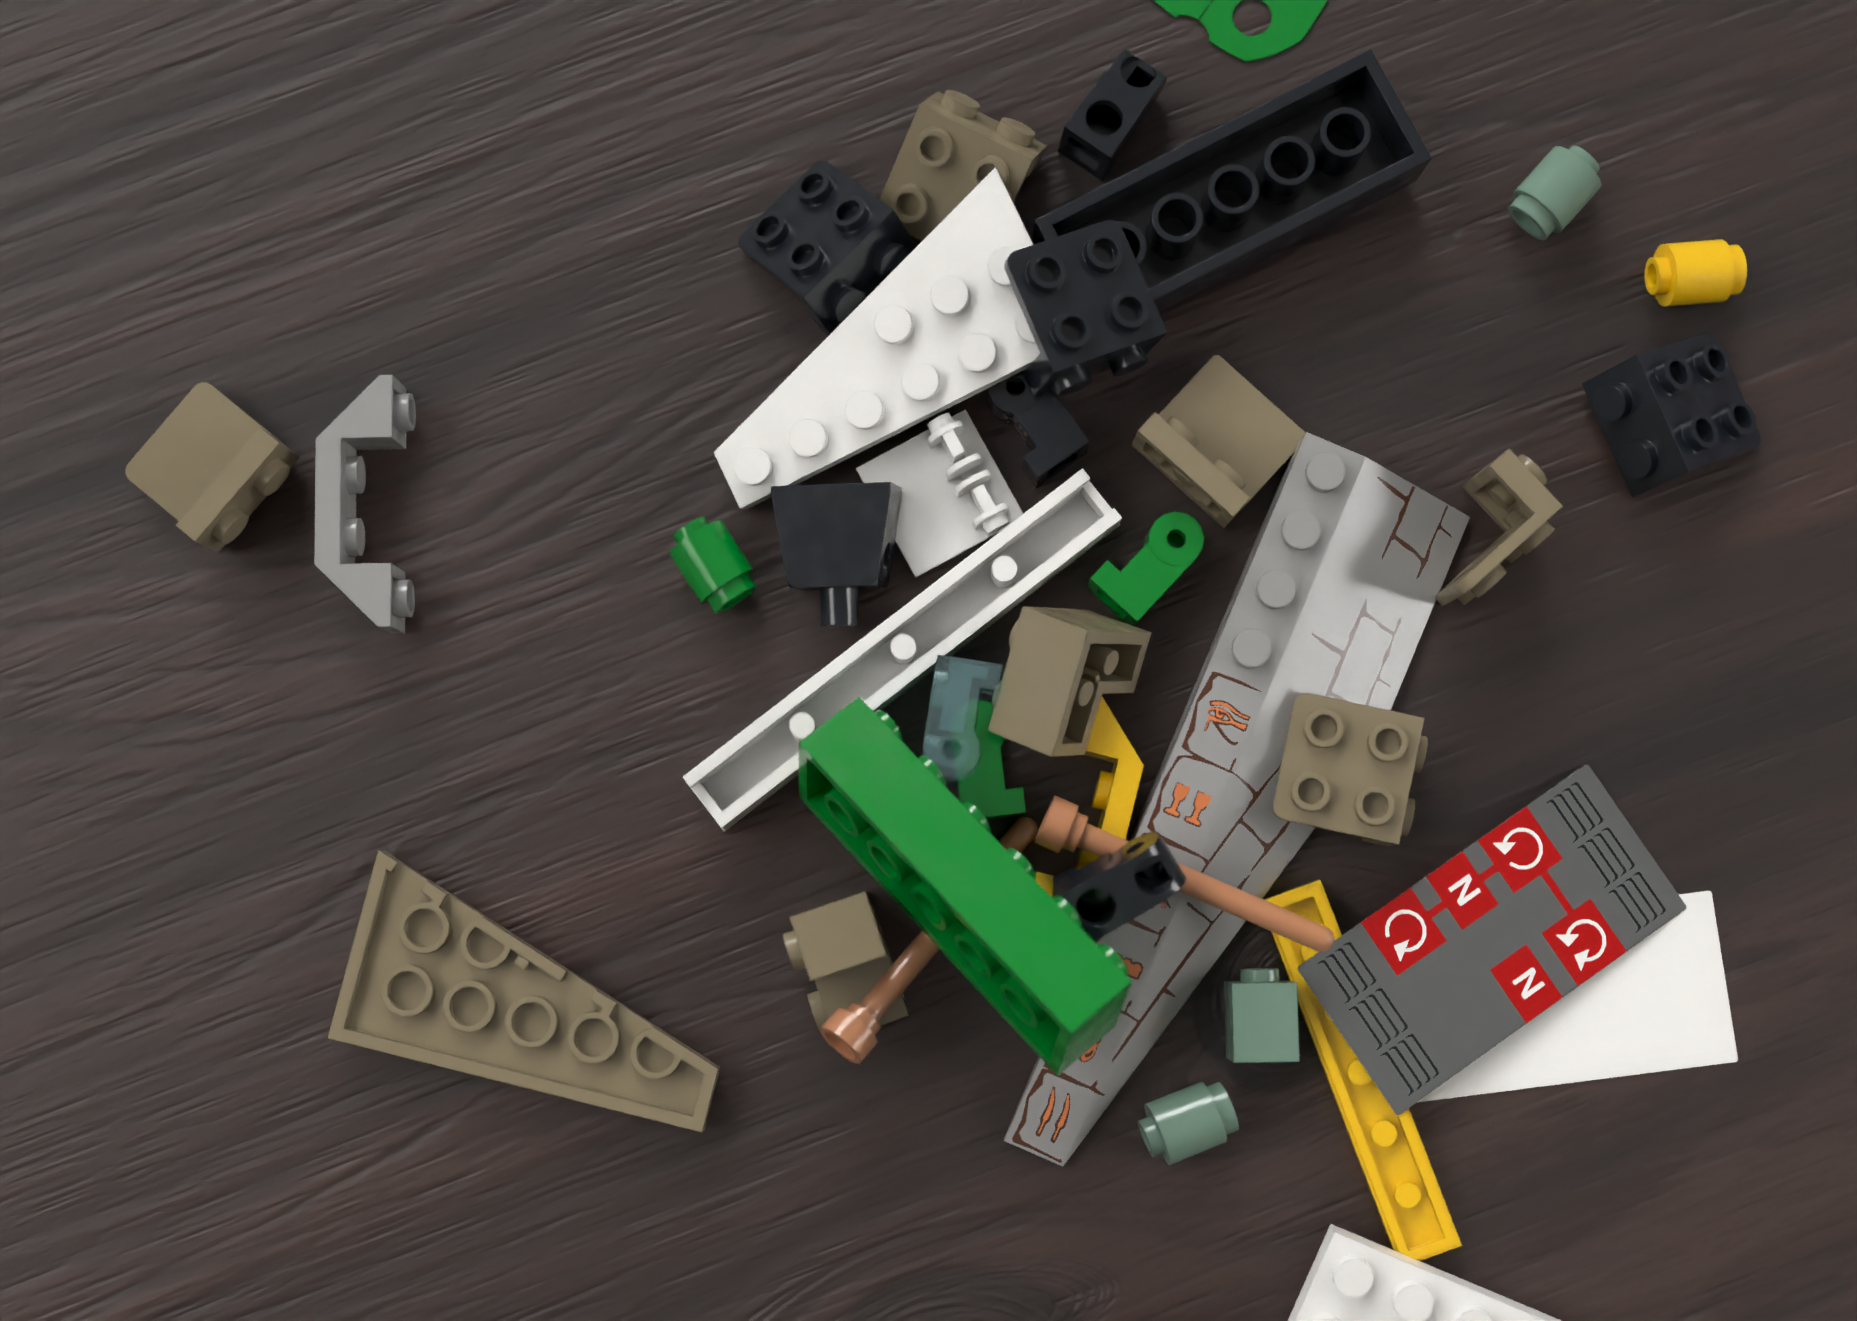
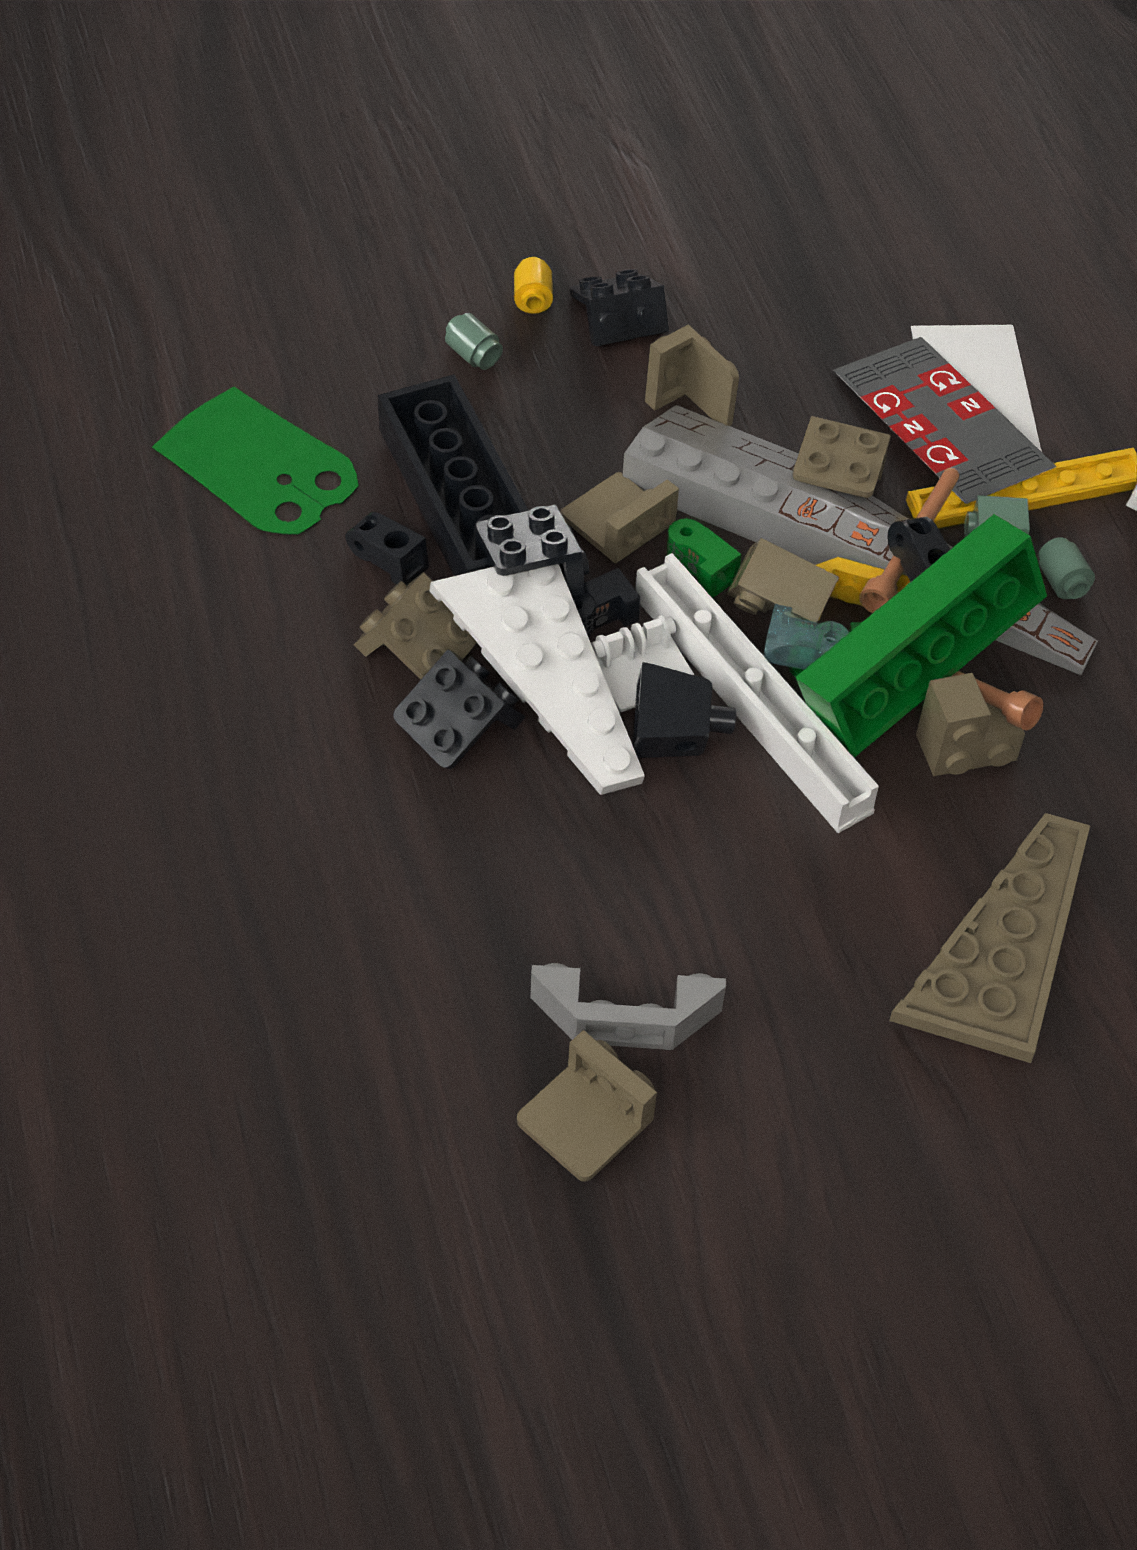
camera: 90 degrees left, 30 degrees down
(712, 564) = (685, 791): green brick -> none

